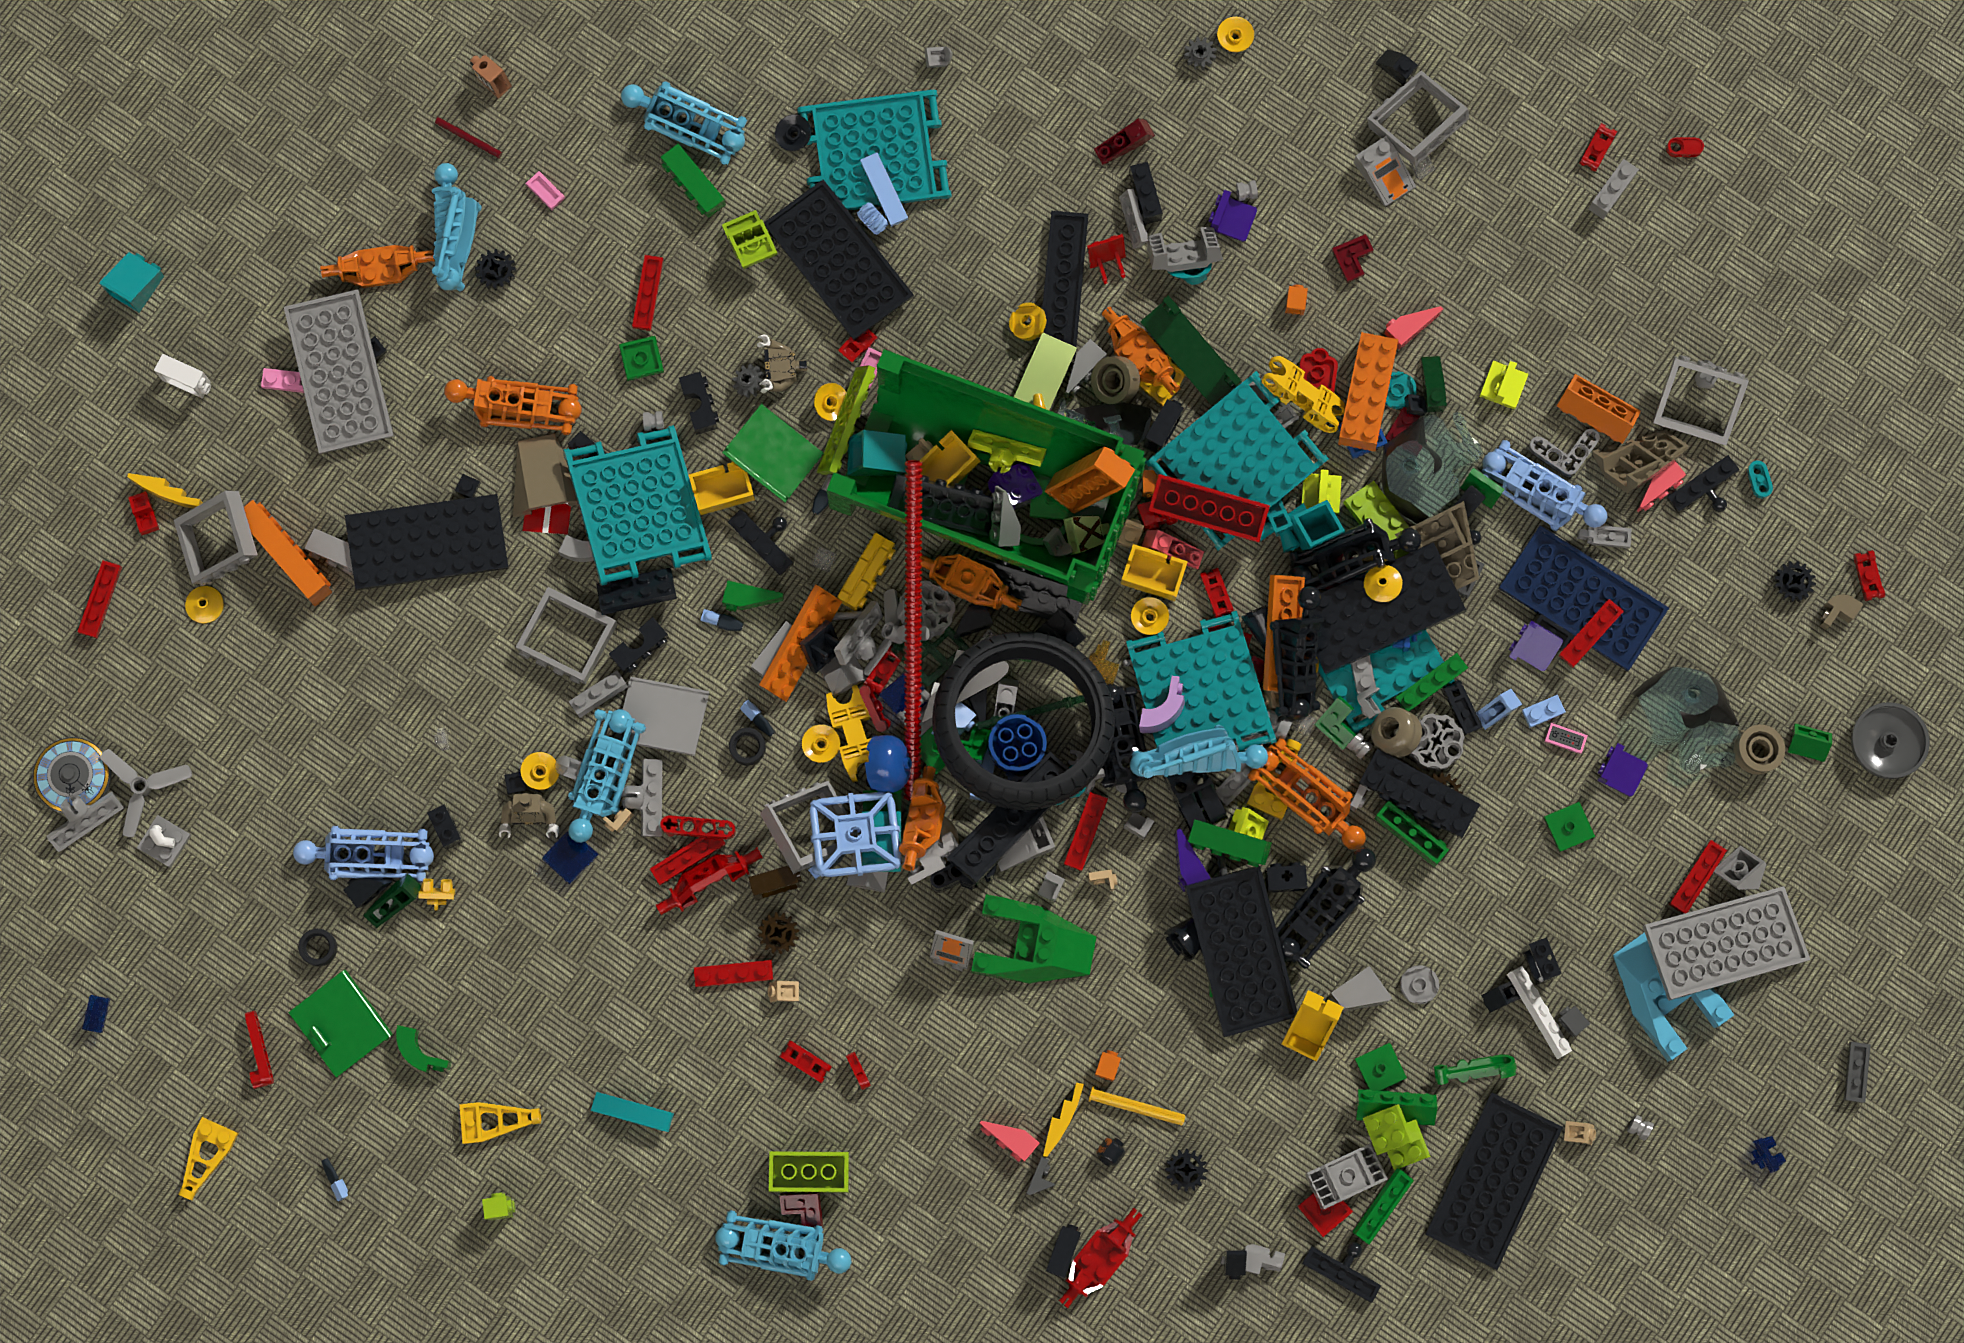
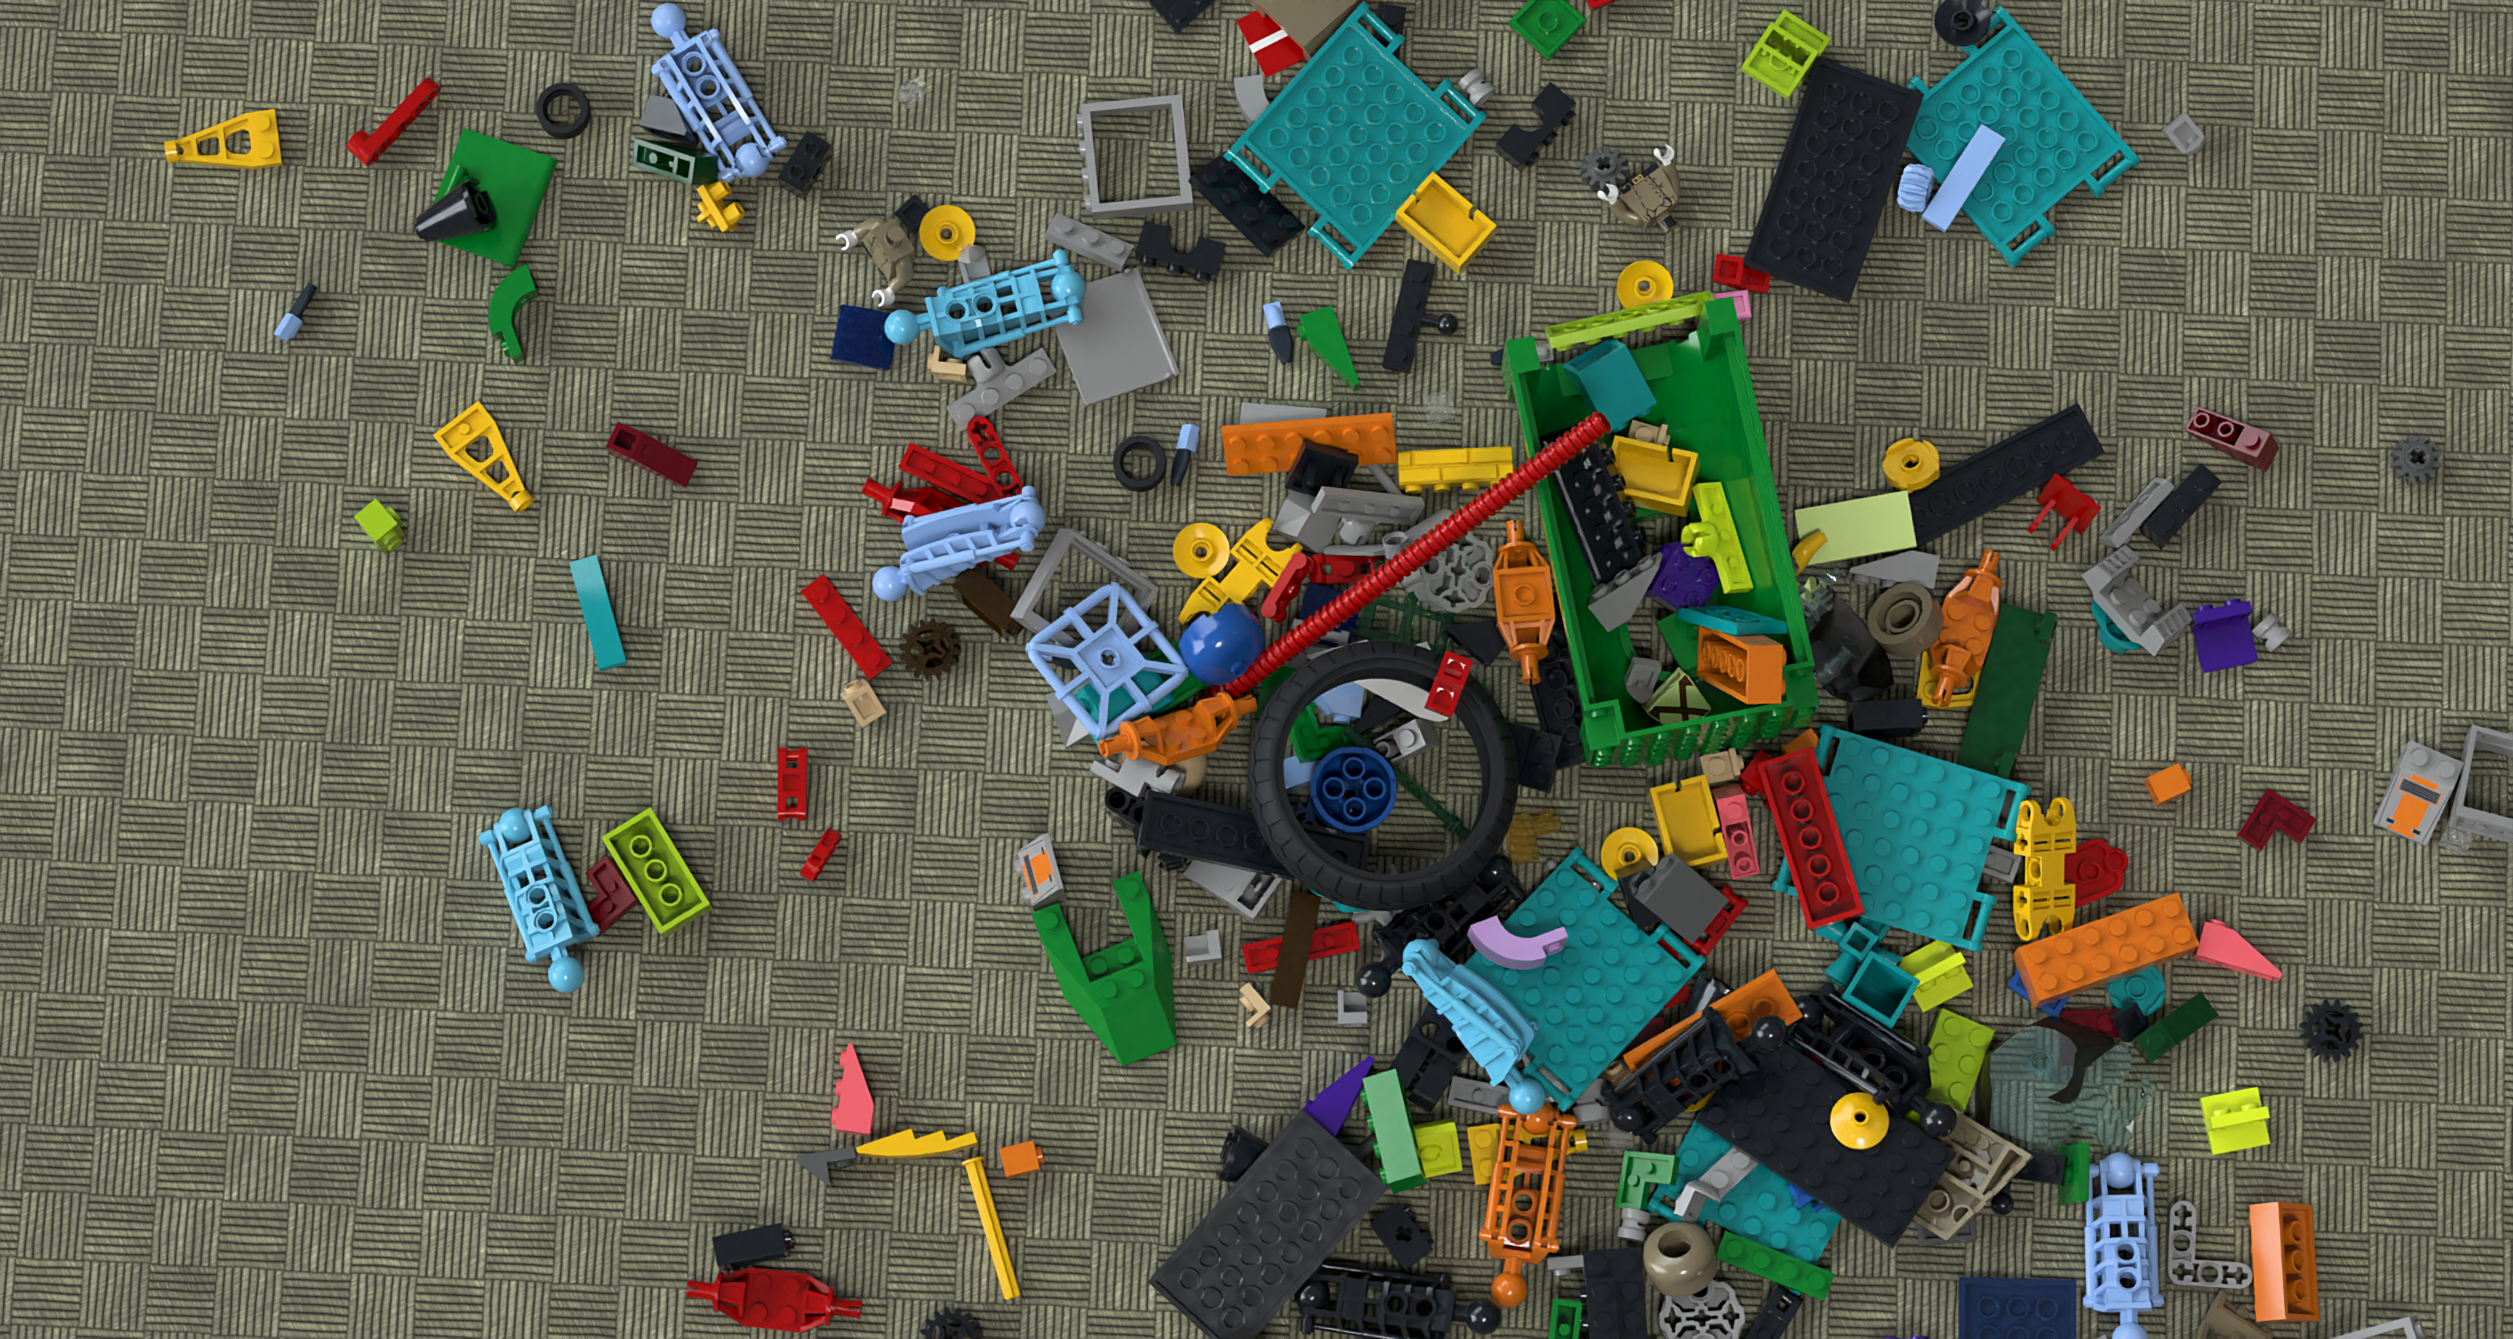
camera: 60 degrees right, 0 degrees up
(340, 1046) = (457, 214): none -> black cone
(558, 1023) = (650, 455): none -> dark red slope
(730, 873) = (958, 539): none -> light blue piece
(773, 453) = (1529, 257): green container -> none
(998, 649) = (1448, 684): none -> red slope
(1062, 470) = (1732, 620): none -> teal tile
(1086, 835) = (1295, 950): none -> dark brown tile
(1110, 1151) = (915, 1230): black head -> none
(1177, 621) = (1629, 880): none -> black brick
(1195, 601) = (1681, 898): none -> dark grey brick
(1239, 27) = (2481, 479): yellow dish -> none
(1494, 300) = (2337, 1040): none -> black gear

